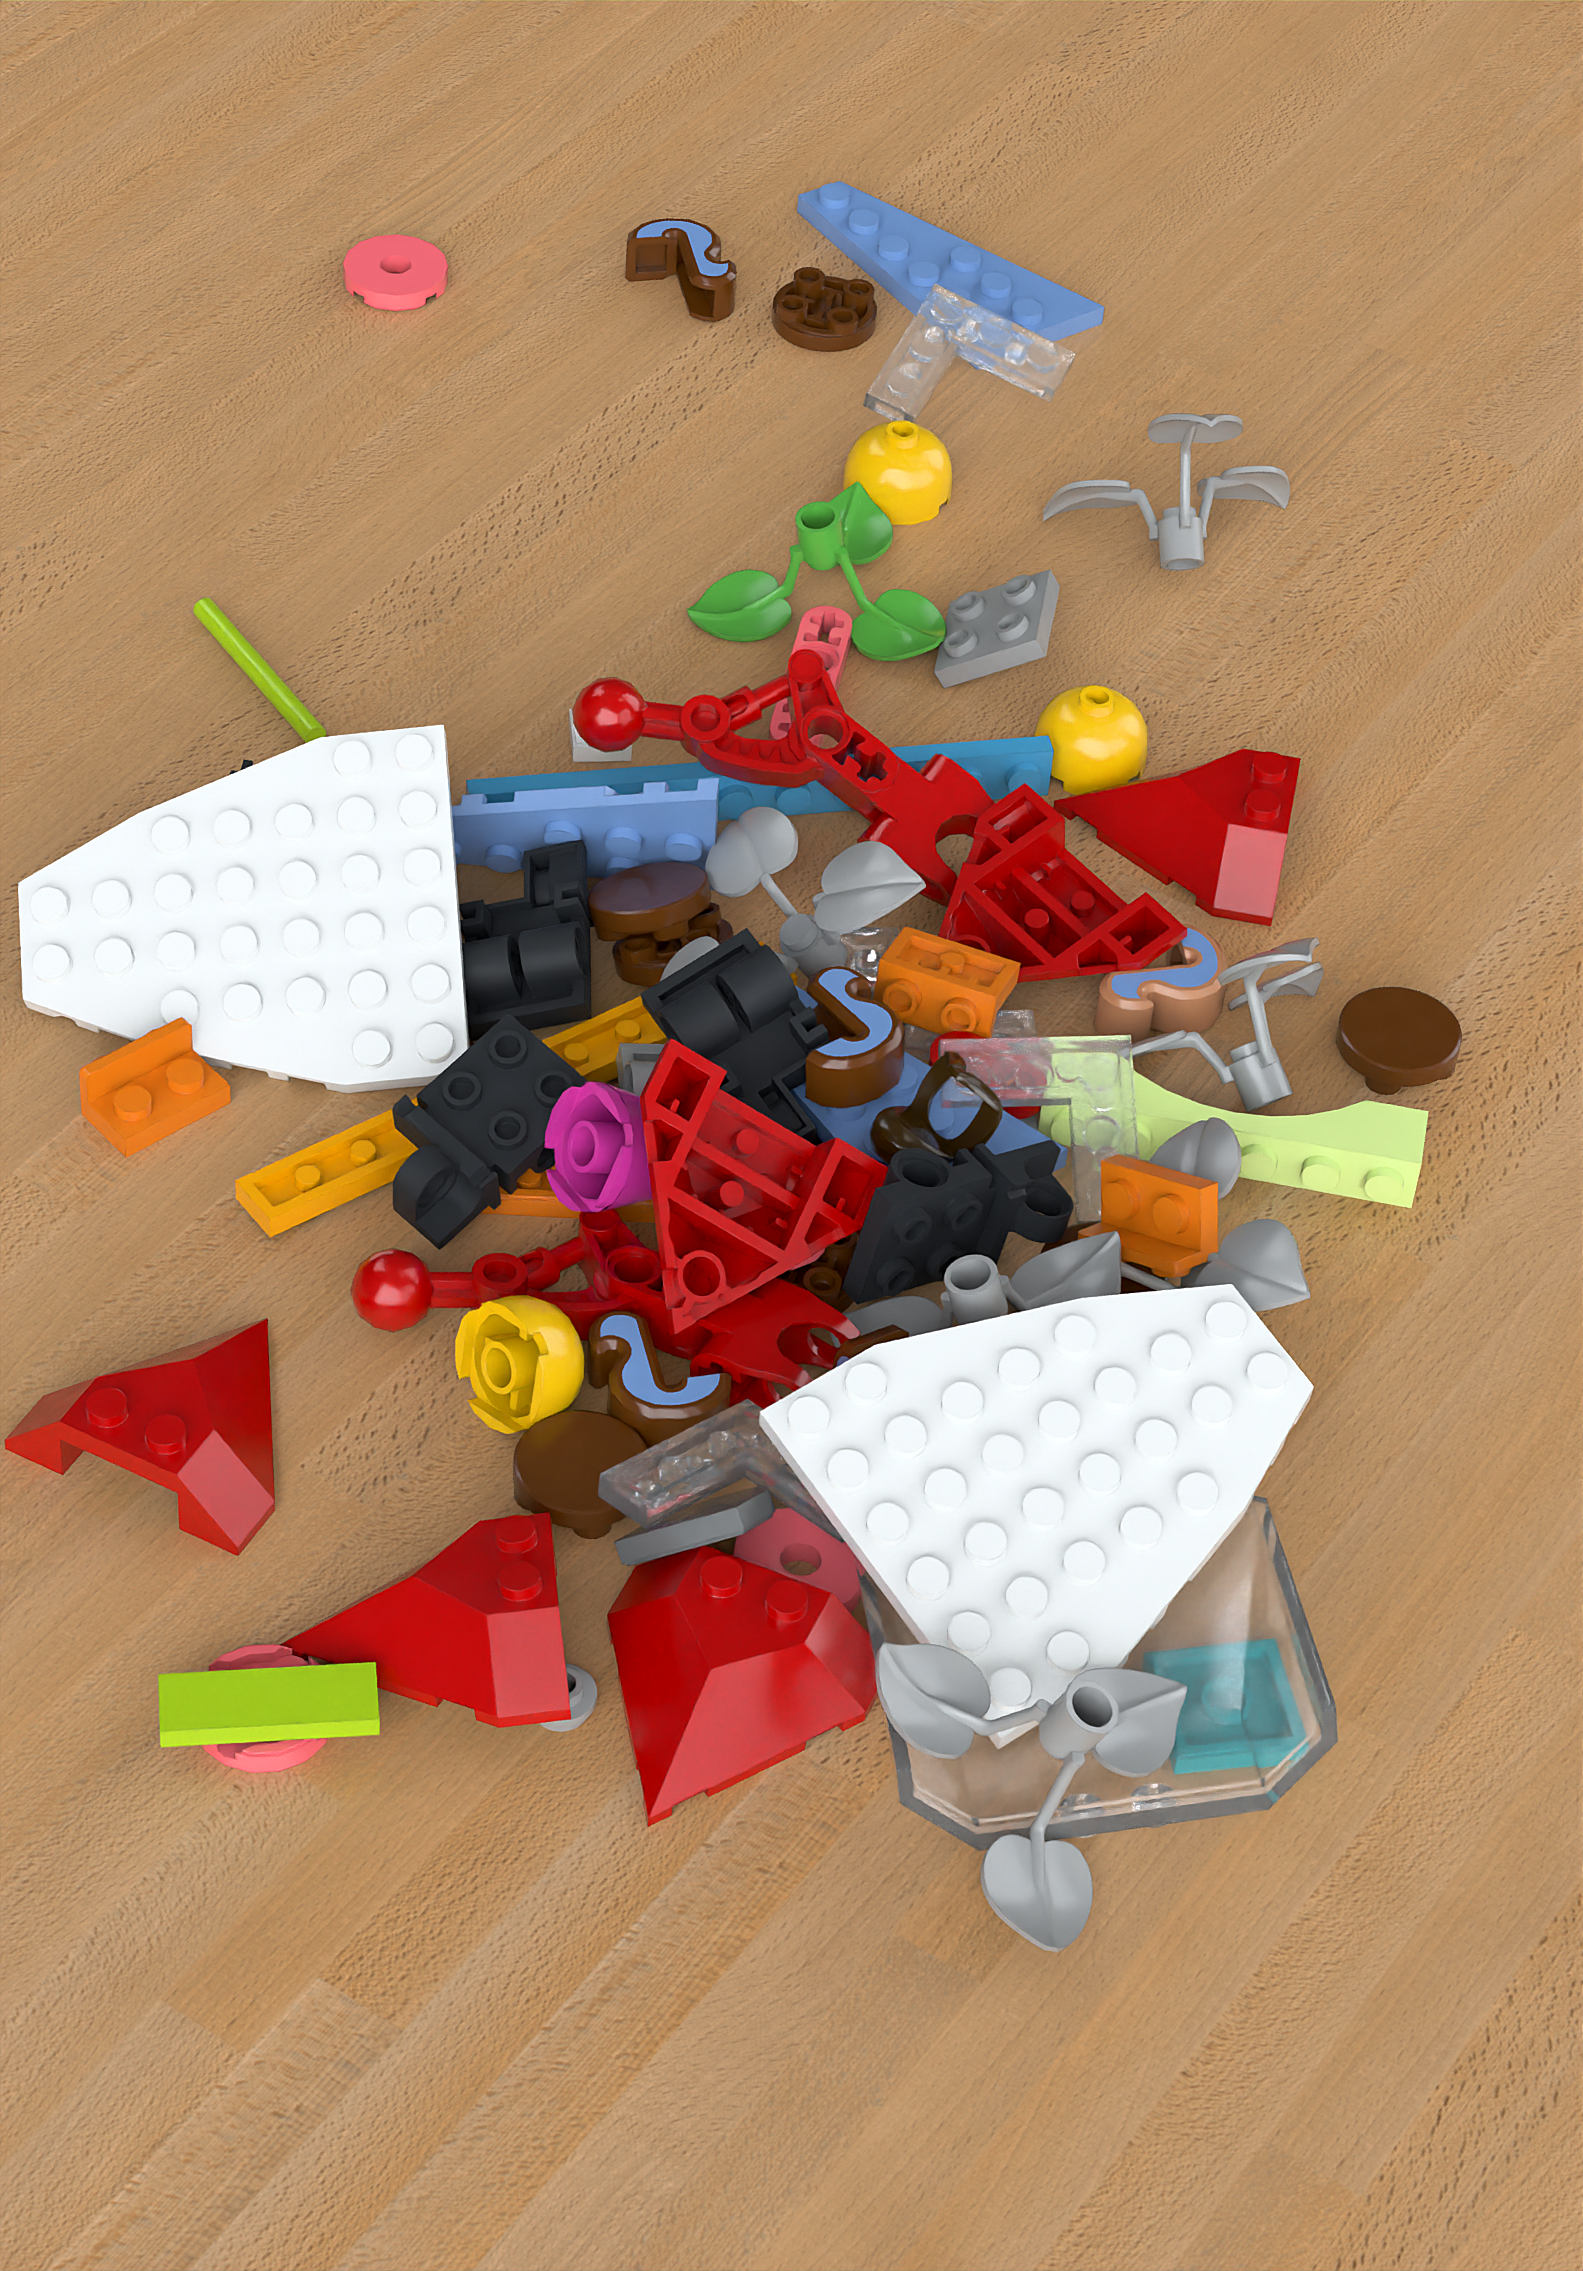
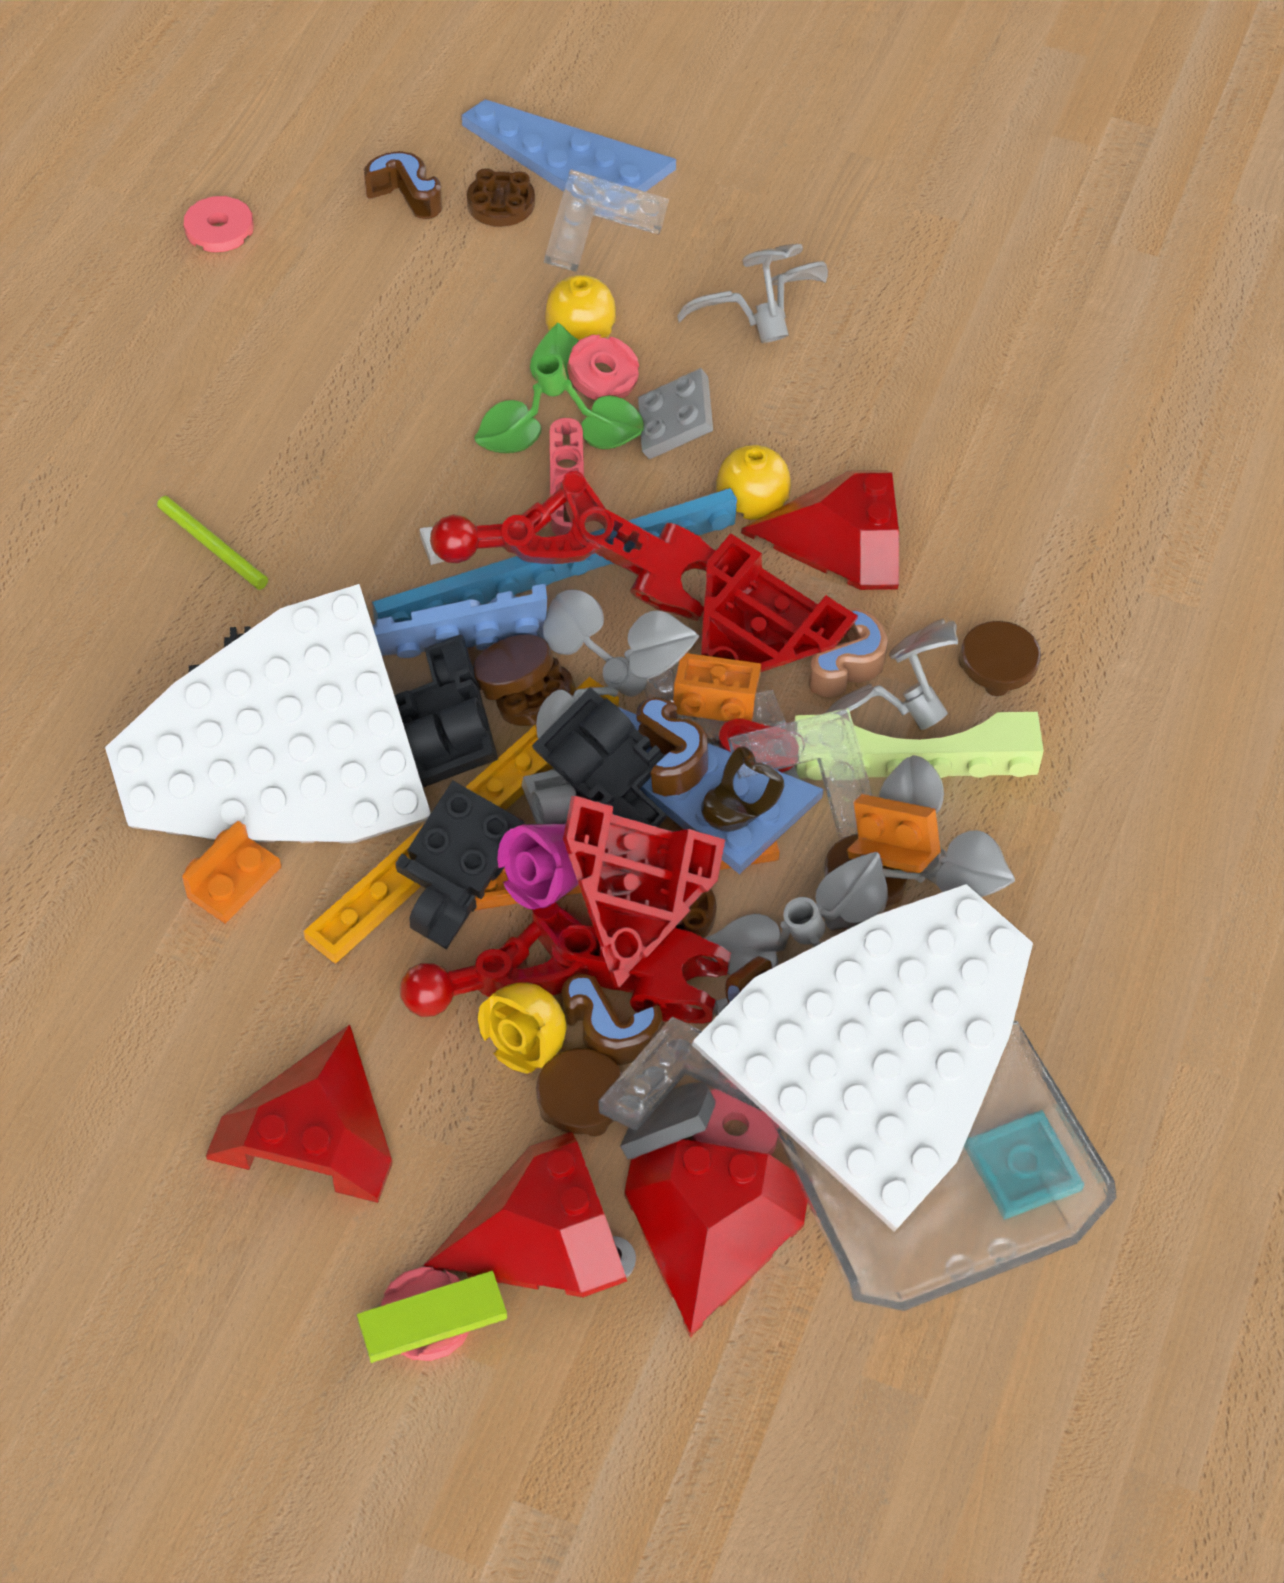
camera: 10 degrees left, 10 degrees up
(930, 536) = (594, 382): none -> coral tile
(943, 1212) = (764, 859): black plate -> none
(1115, 1713) = (972, 1210): light grey plant -> none

